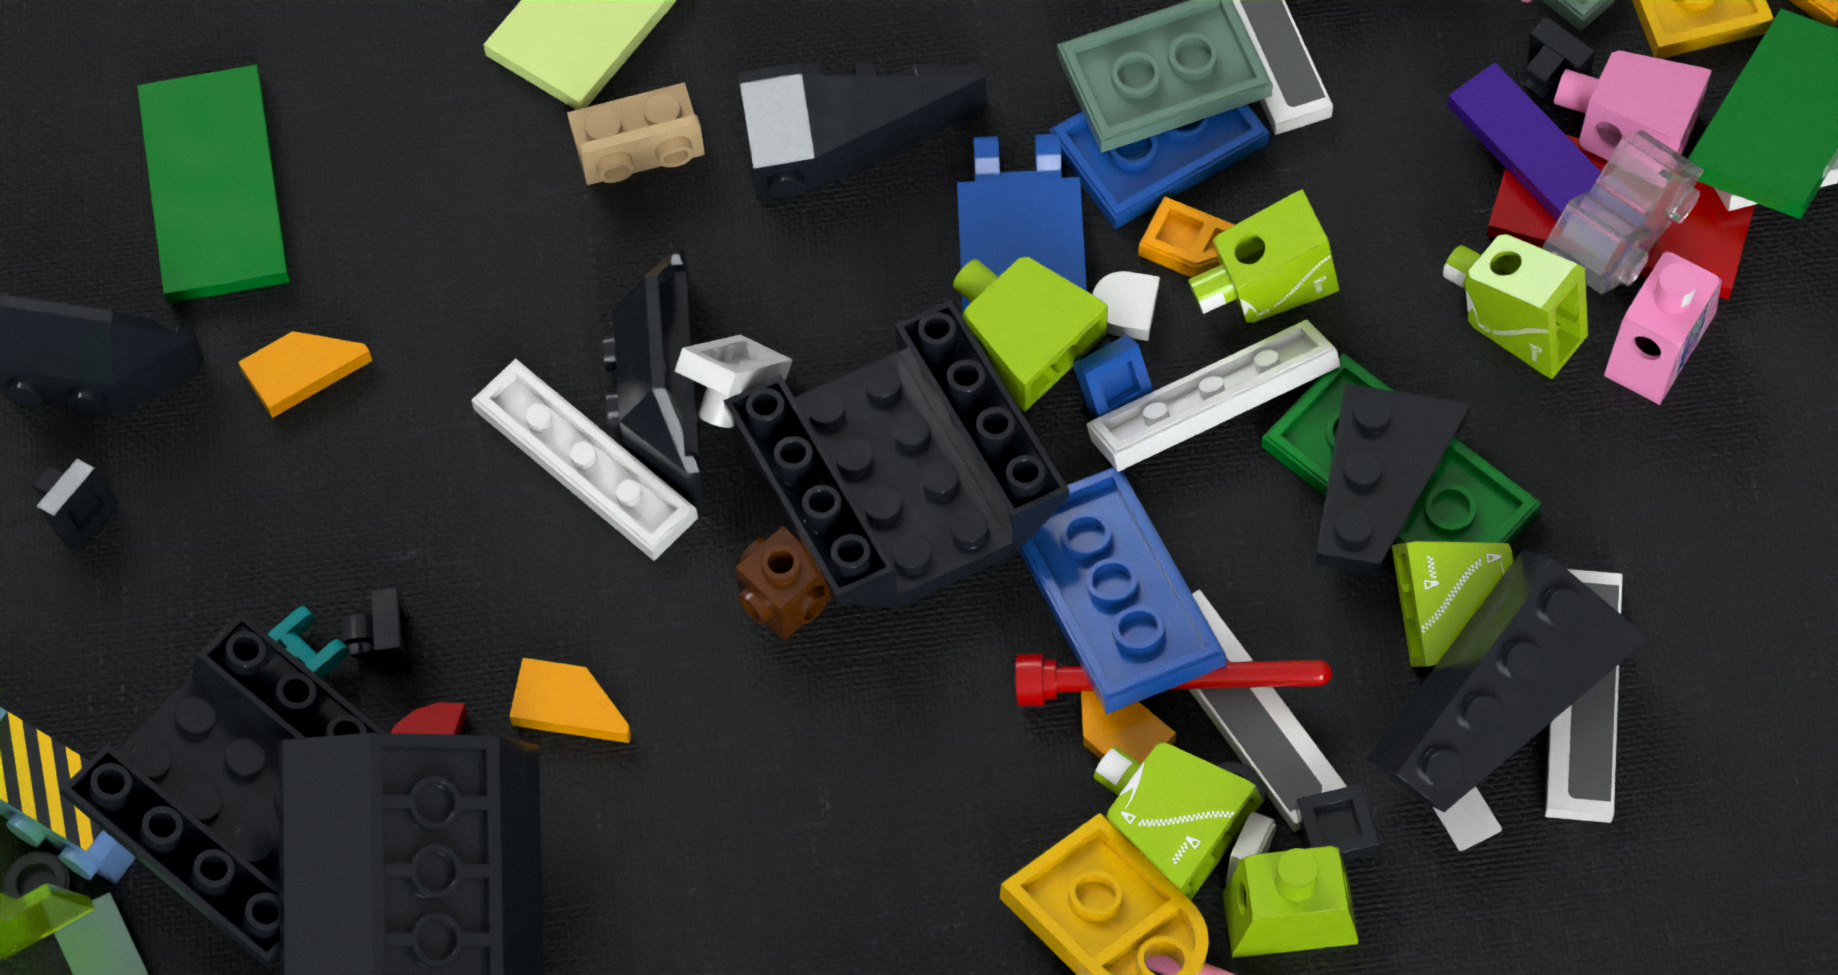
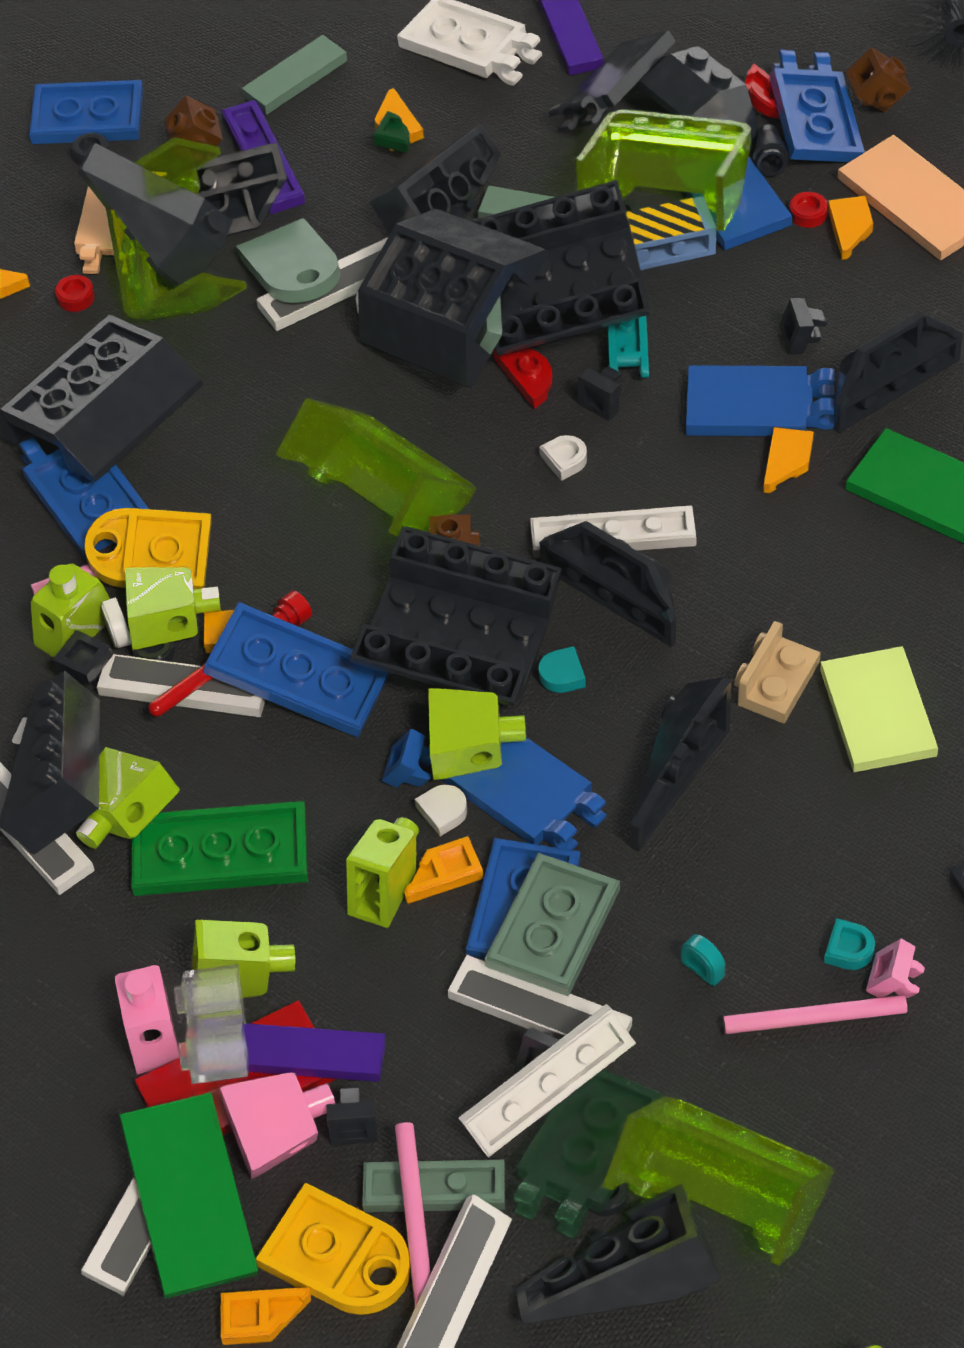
camera: 135 degrees right, 10 degrees down
(237, 470) = (757, 400): none -> blue tile
(515, 605) = (564, 455): none -> white tile
(566, 702) = (493, 440): light orange tile -> none
(728, 369) = (582, 597): white tile -> none
(728, 740) = (375, 464): none -> clear neon green windscreen
(833, 343) = (561, 671): none -> teal tile
(1213, 395) = (348, 798): white tile -> none
(1379, 469) = (225, 825): black wing -> none

